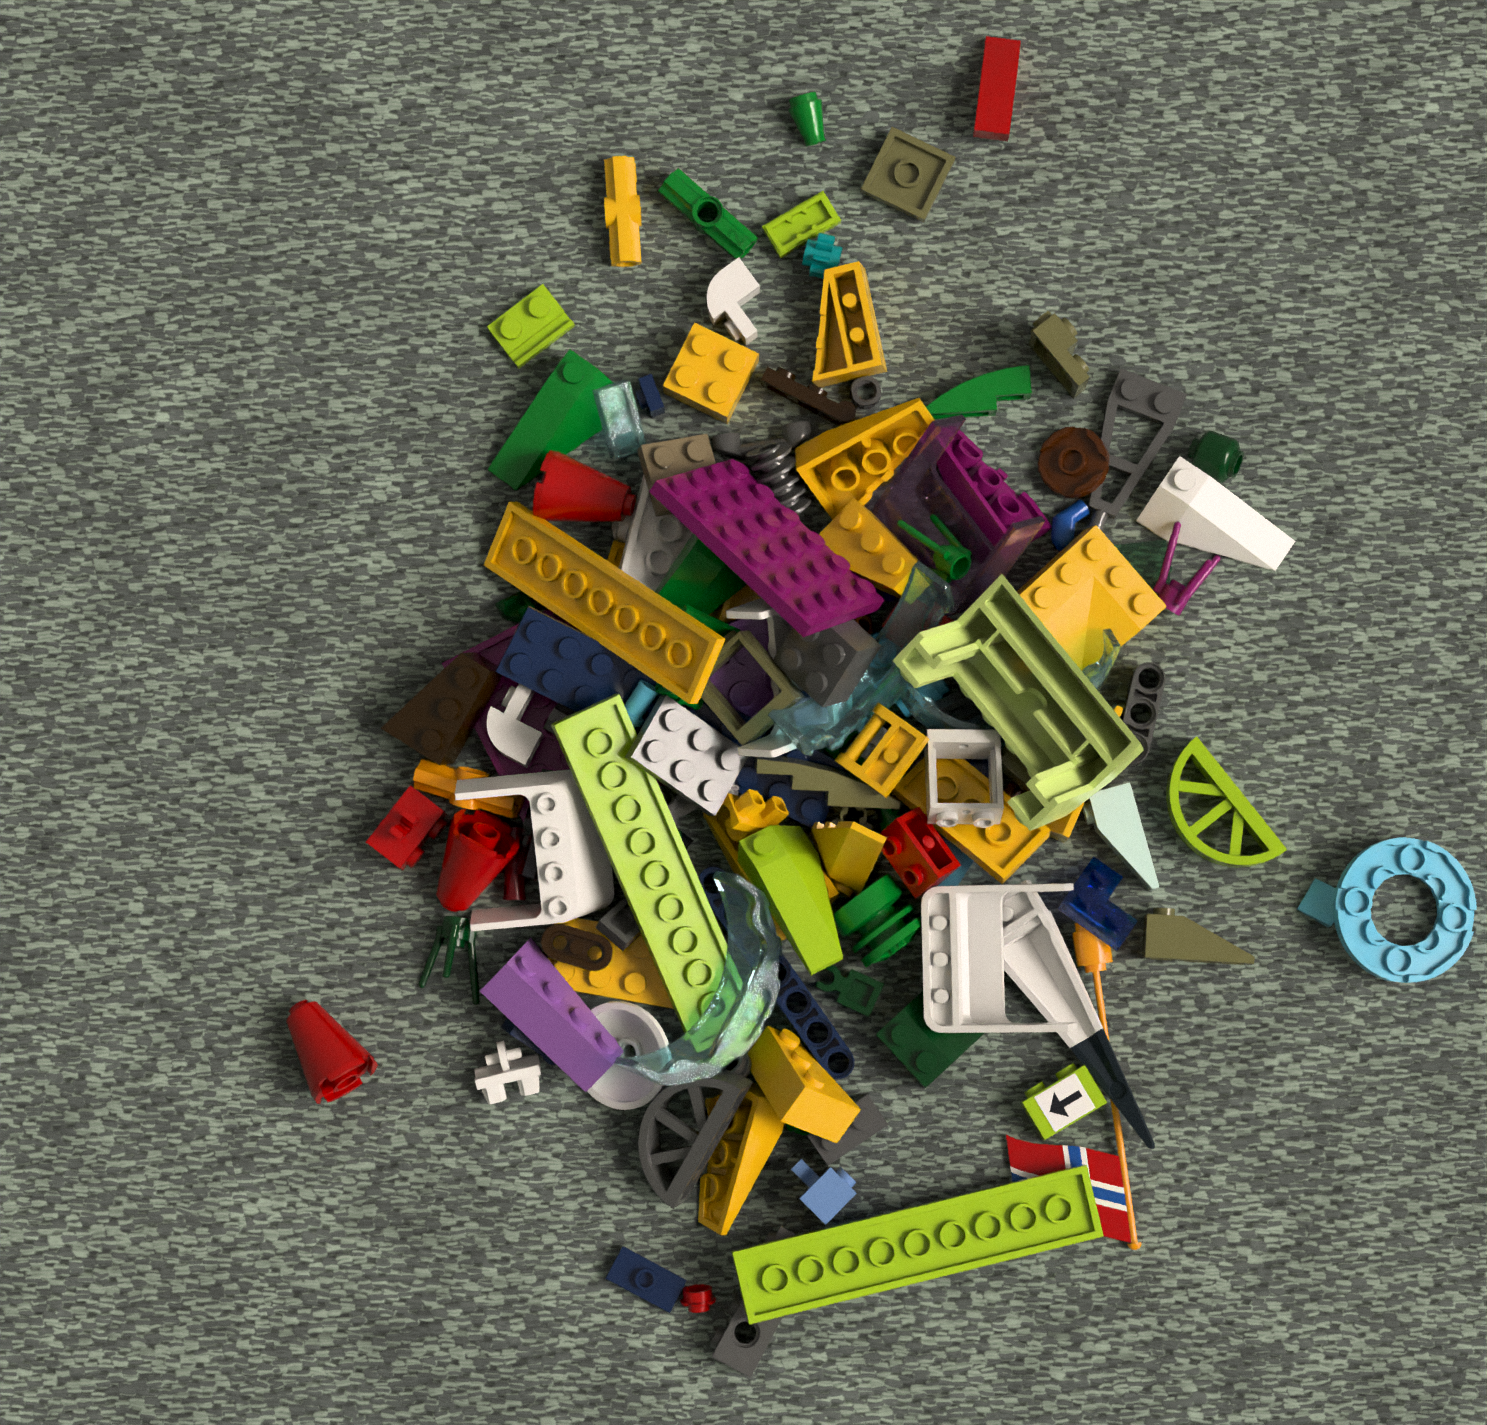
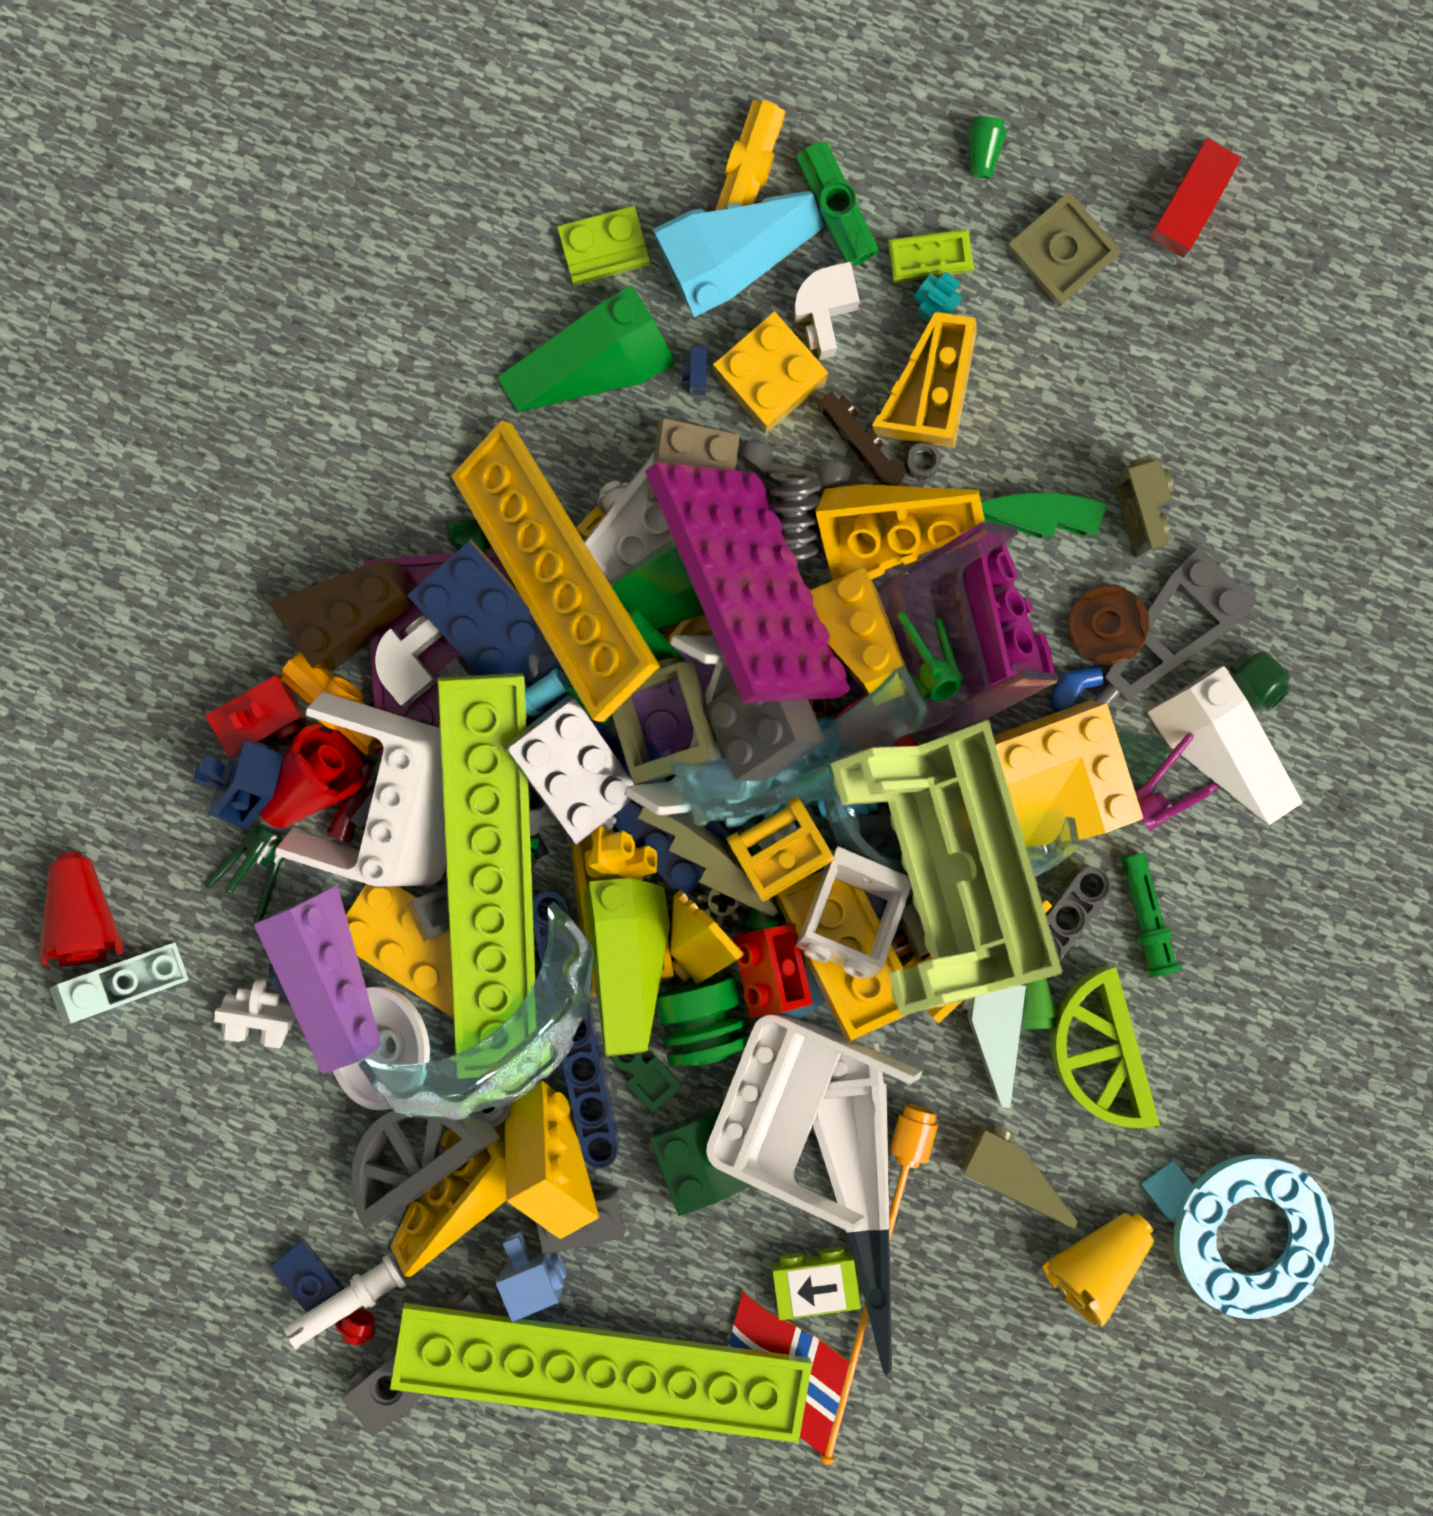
camera: 15 degrees right, 5 degrees up
(382, 1097) = (118, 984): none -> light aqua slope
(421, 883) = (242, 784): none -> dark blue brick
(577, 947) = (380, 916): dark brown plate -> none
(579, 493) = (578, 441): red cone -> none
(619, 419) = (654, 381): clear light blue plate -> none
(633, 290) = (729, 248): none -> medium azure wedge
(691, 1264) = (362, 1292): none -> white pin
(1091, 908) = (931, 1100): clear blue plate -> none
(1148, 796) = (1038, 1007): none -> bright green cone
(1219, 699) = (1153, 933): none -> green pin
(1289, 987) = (1101, 1266): none -> yellow cone

